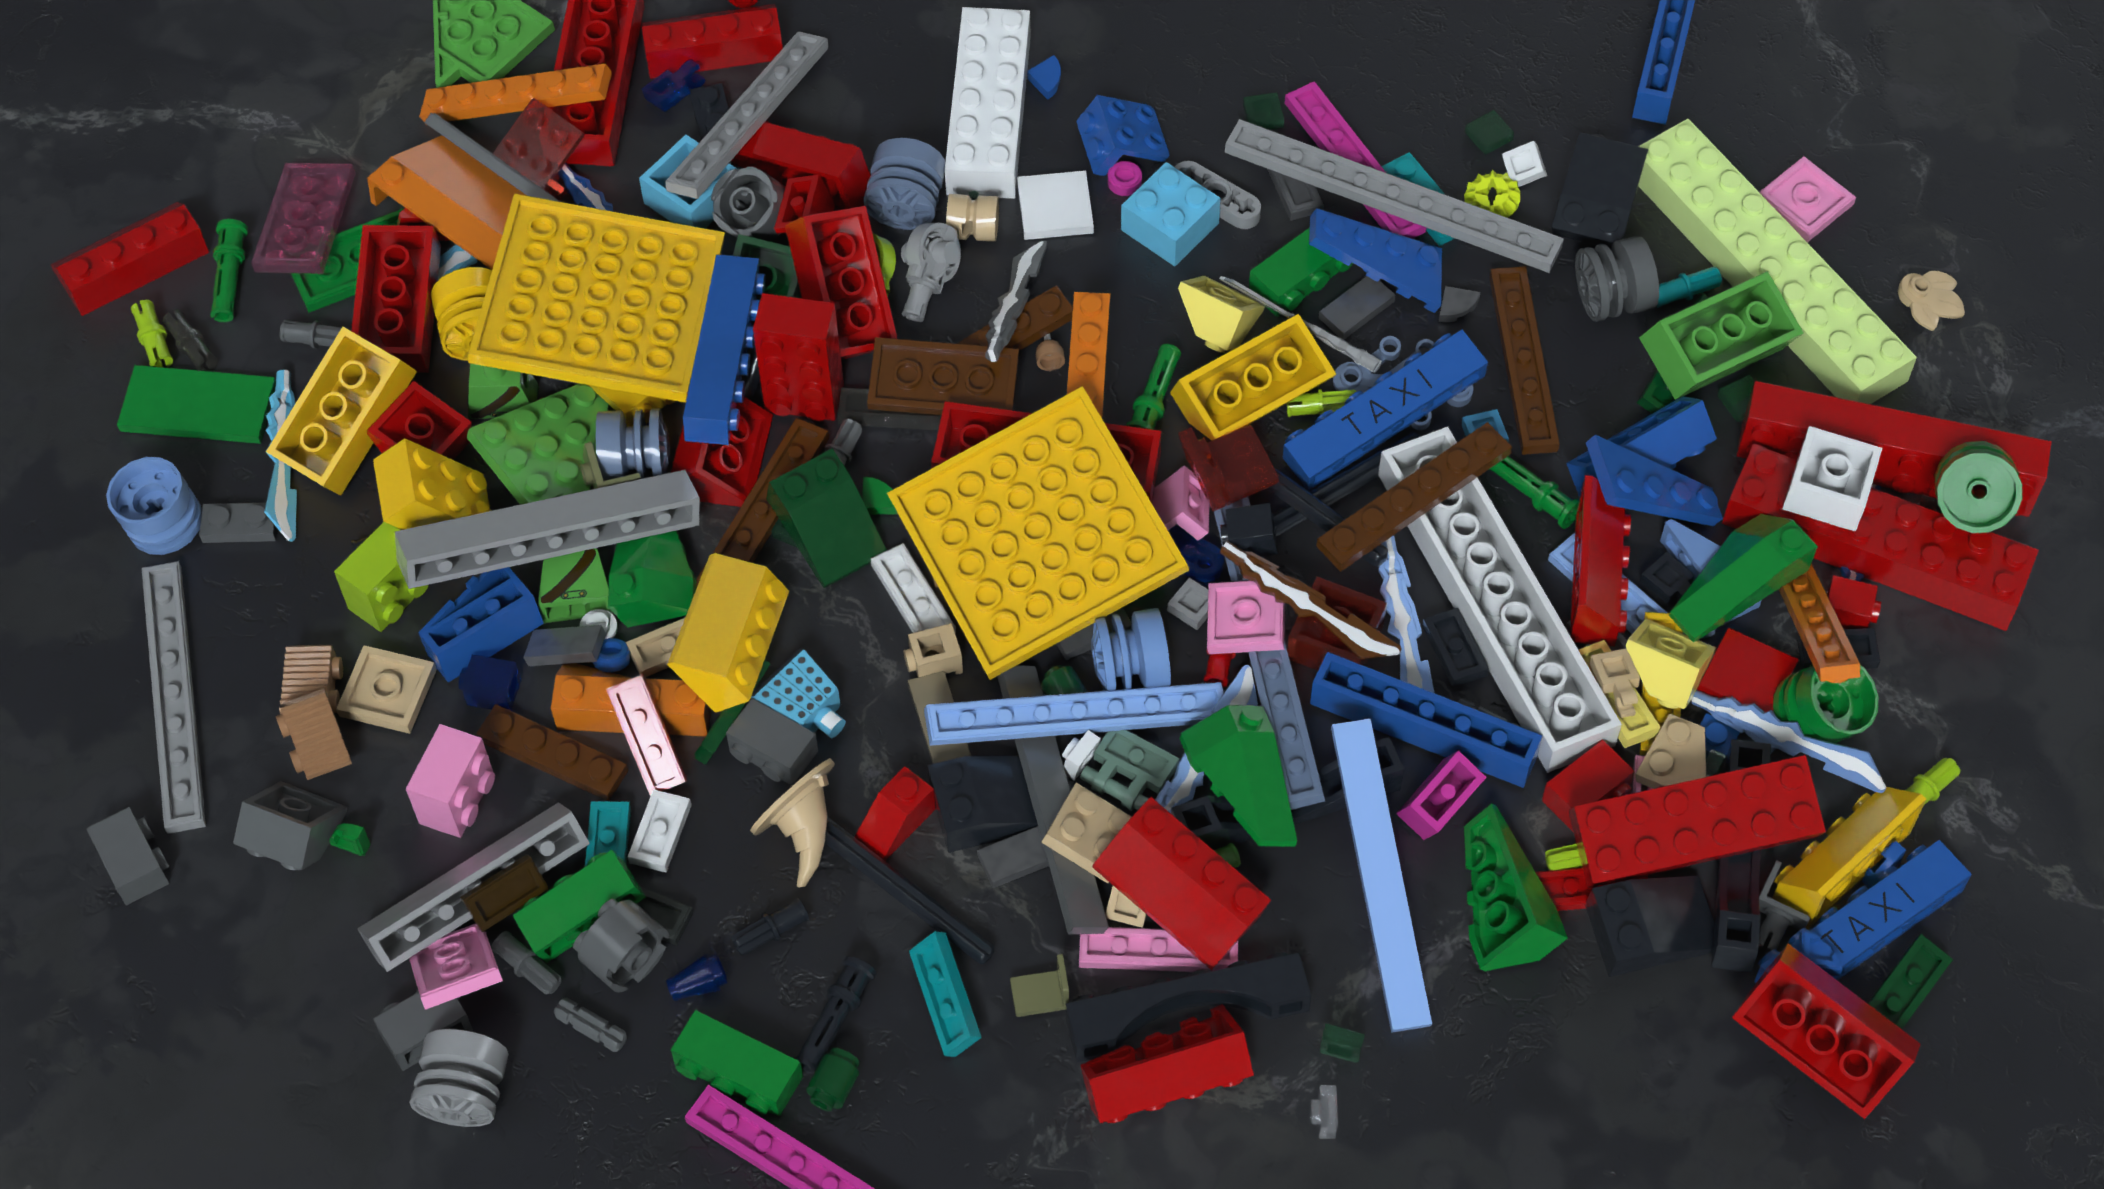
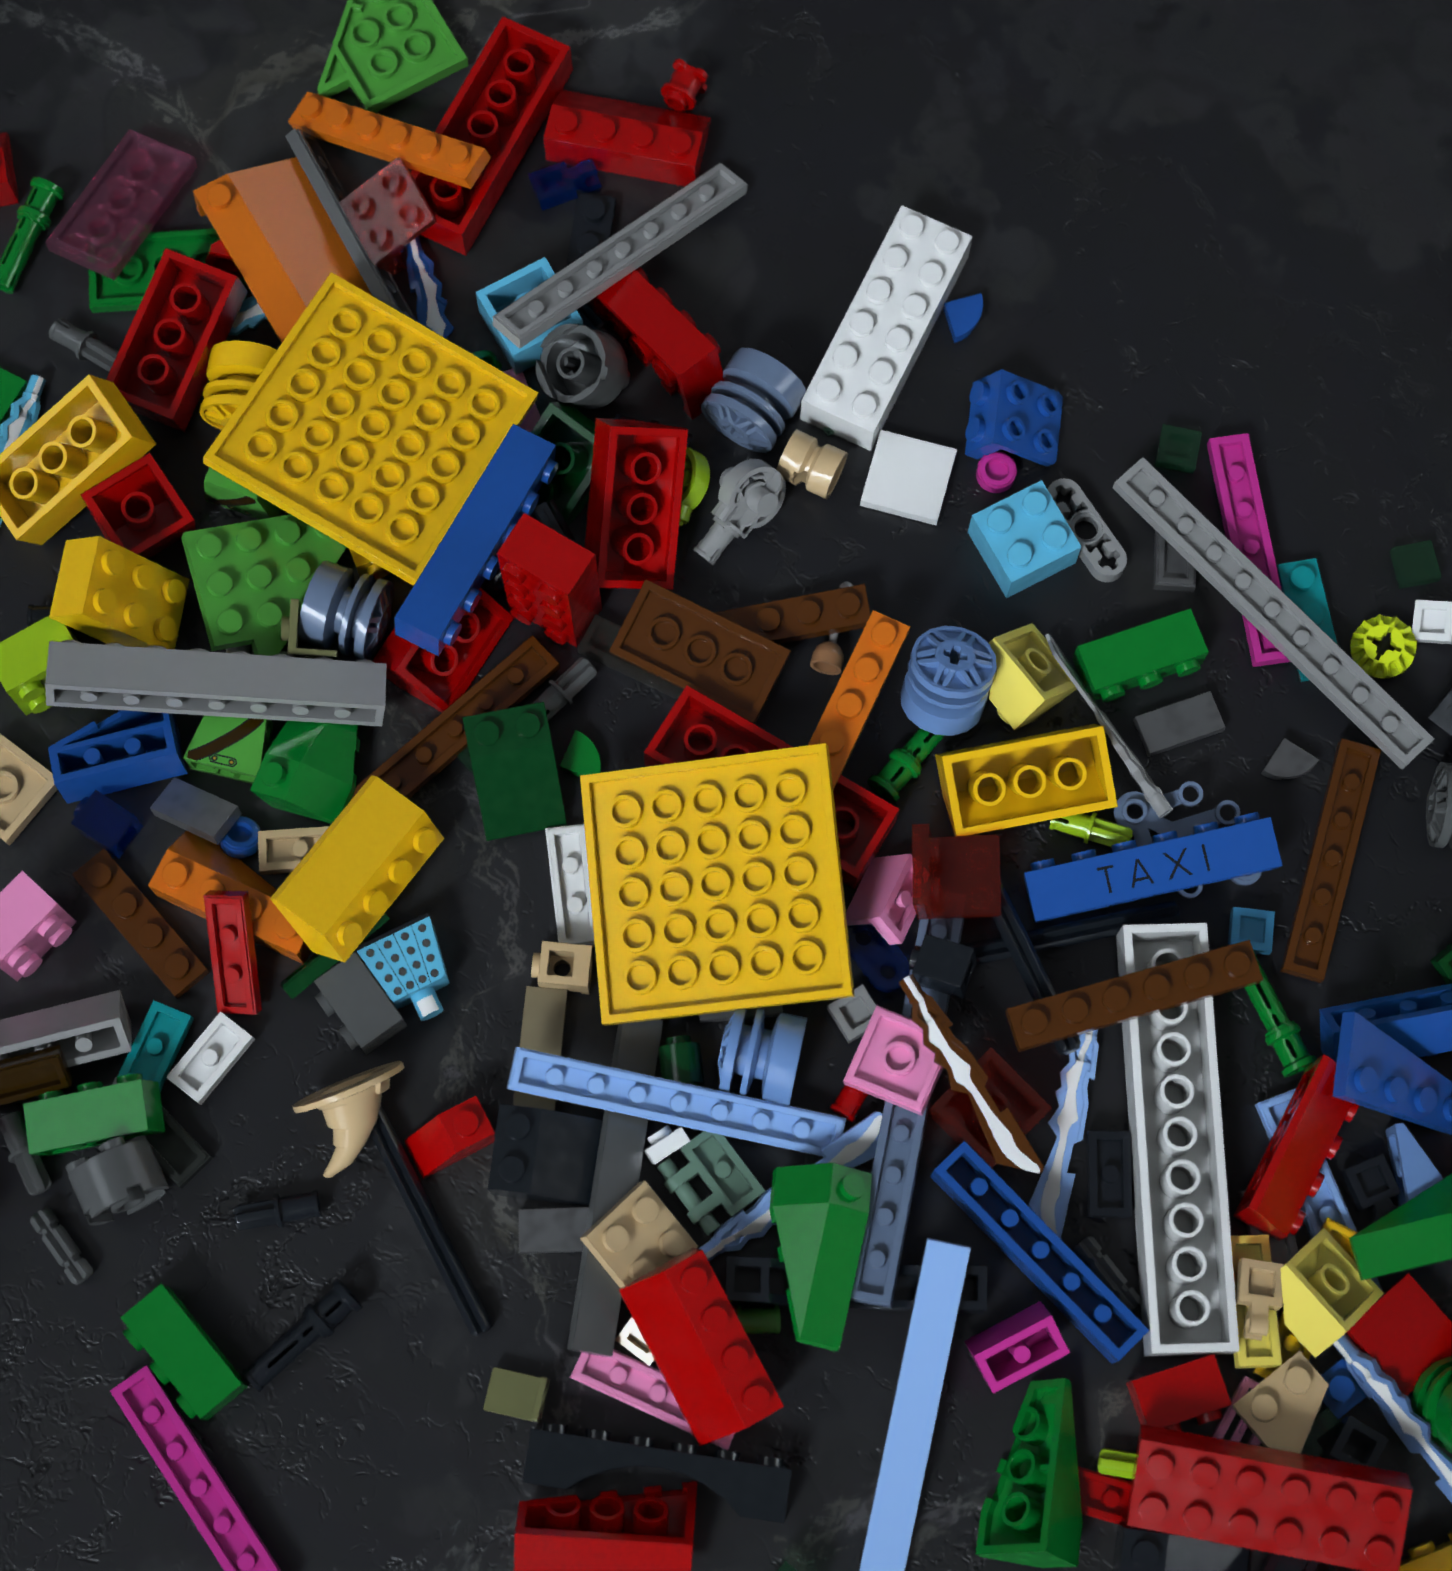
camera: 20 degrees right, 15 degrees up
(603, 618) = (239, 793): white plate -> none
(698, 978) = (186, 1240): clear blue cone -> none
(803, 198) = (635, 391): red slope -> none
(833, 1079) = (271, 1409): dark green brick -> none
(945, 994) = (420, 1360): teal plate -> none
(1012, 303) = (812, 584): dark grey sword -> none
(1157, 328) = (948, 680): none -> medium blue wheel
(1382, 254) = (1236, 685): blue wing -> none

